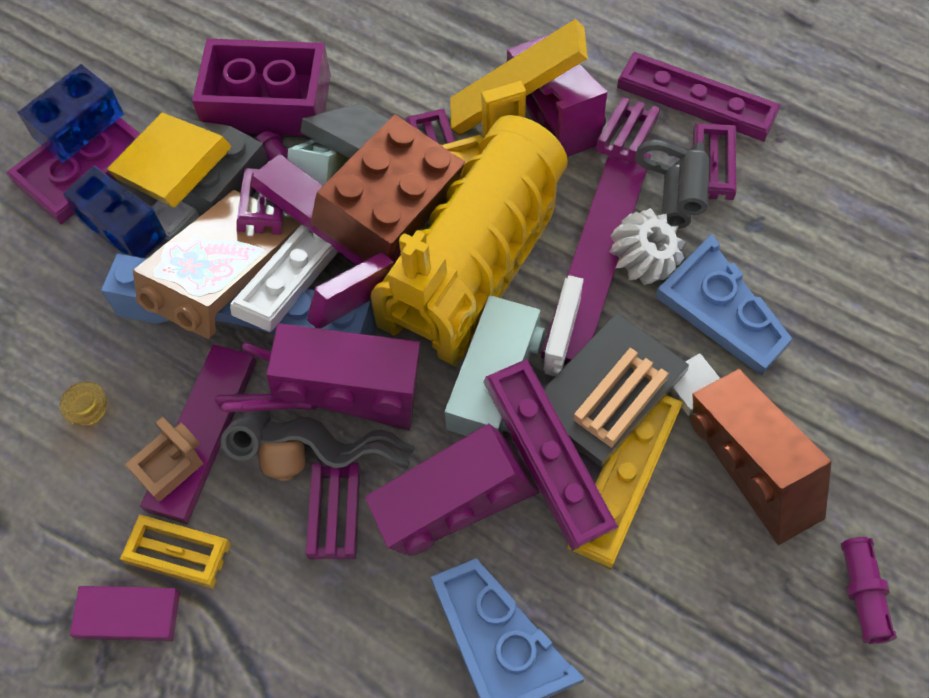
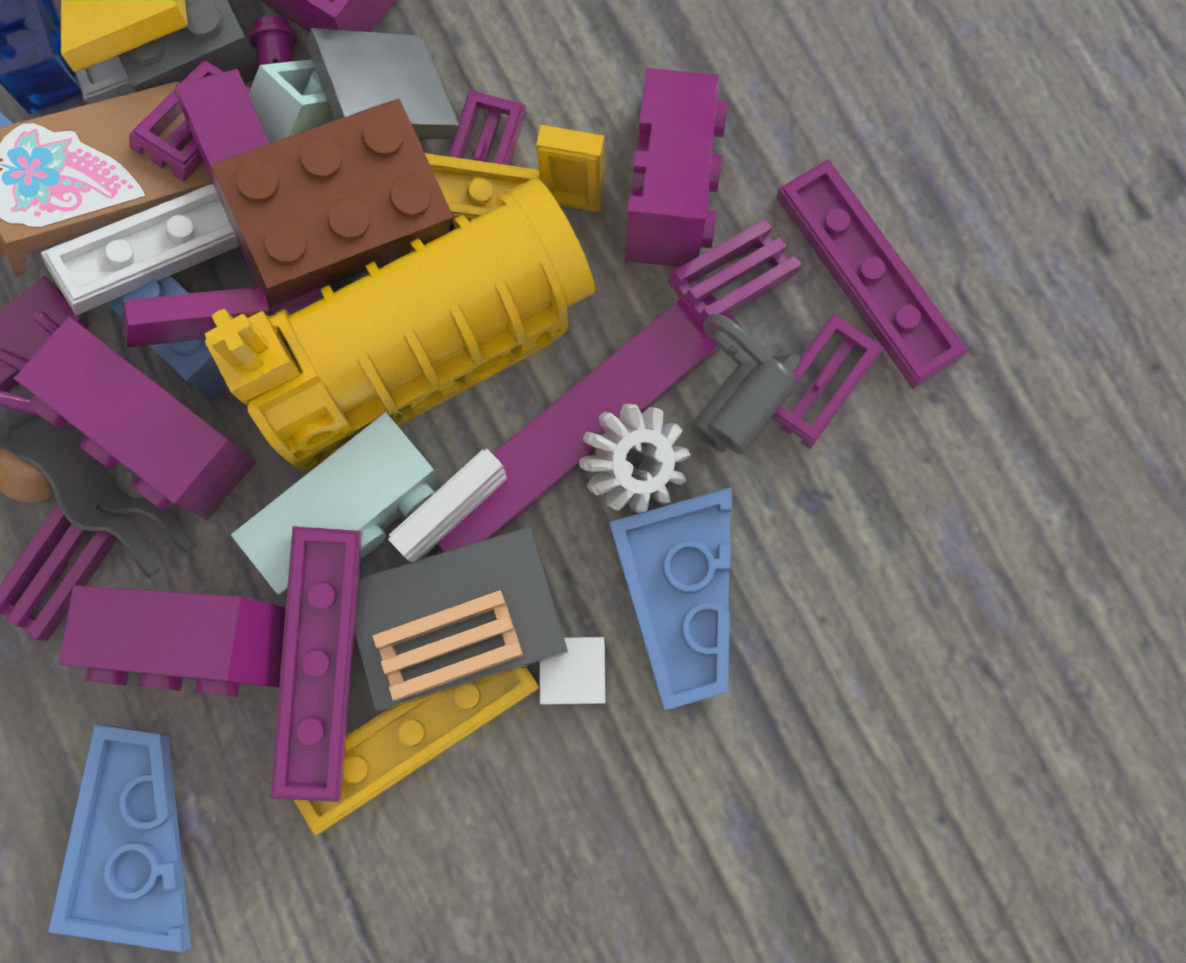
camera: 30 degrees right, 15 degrees up
(533, 67) = (633, 123): yellow tile -> none
(764, 454) = (571, 814): wedge -> none

